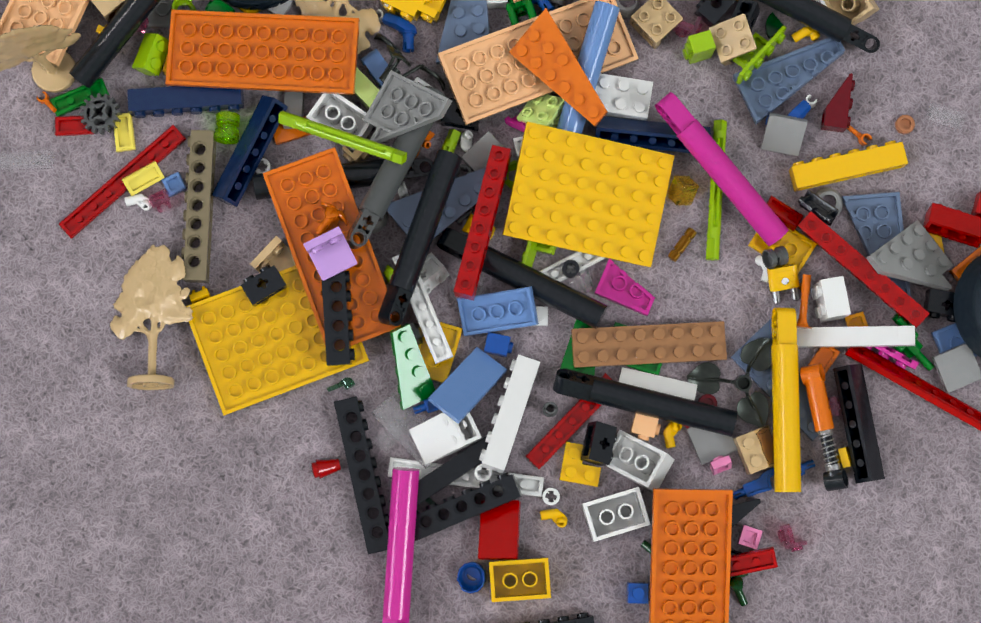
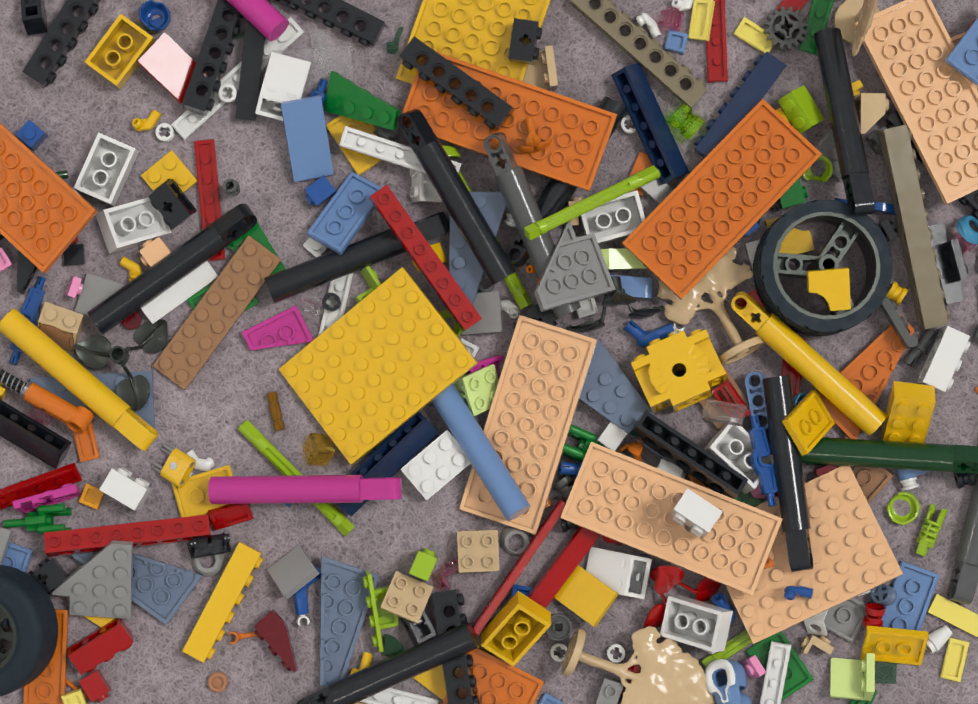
camera: 130 degrees right, 5 degrees up
(176, 212) = (651, 24): none -> white arm
(330, 253) = (498, 110): lavender bracket -> none
(510, 413) = (255, 153): white brick -> none
(552, 61) = (508, 427): orange wing -> none
(697, 482) = (74, 255): none -> black tile
(775, 257) = (198, 475): dark grey wheel -> none
(805, 292) = (128, 449): orange piece -> none
(856, 336) = (80, 481): white tile -> none

